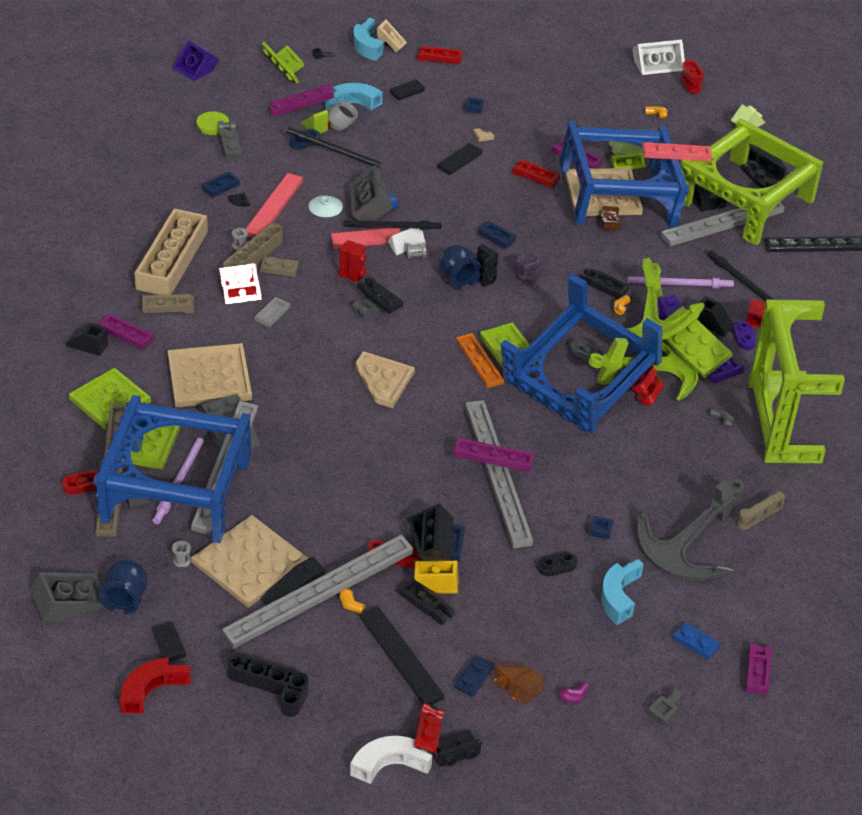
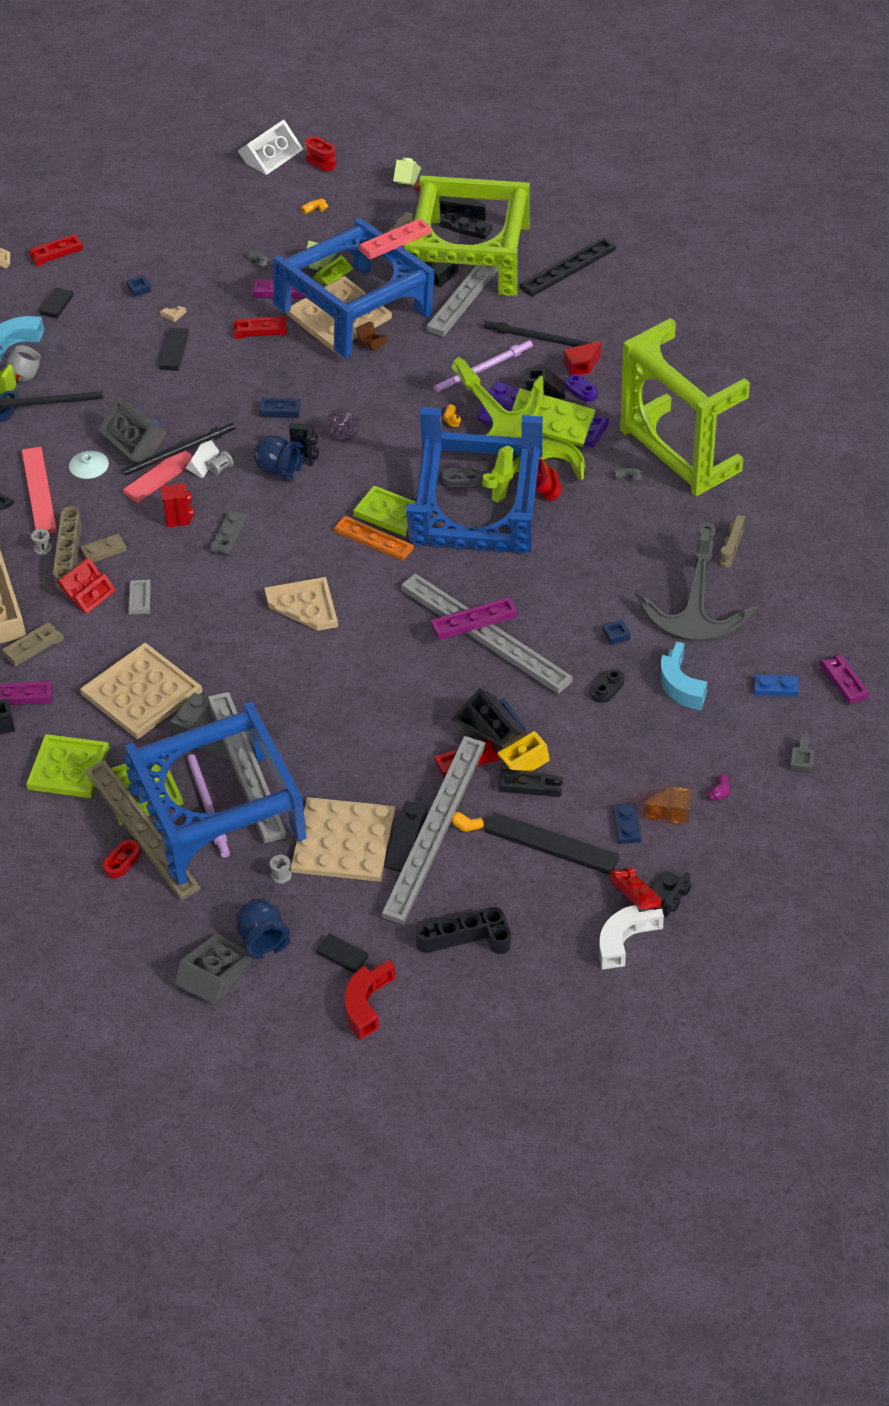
camera: 30 degrees left, 5 degrees up
(379, 295) = (231, 525): black hinge -> none
(604, 282) = (414, 402): black hinge -> none

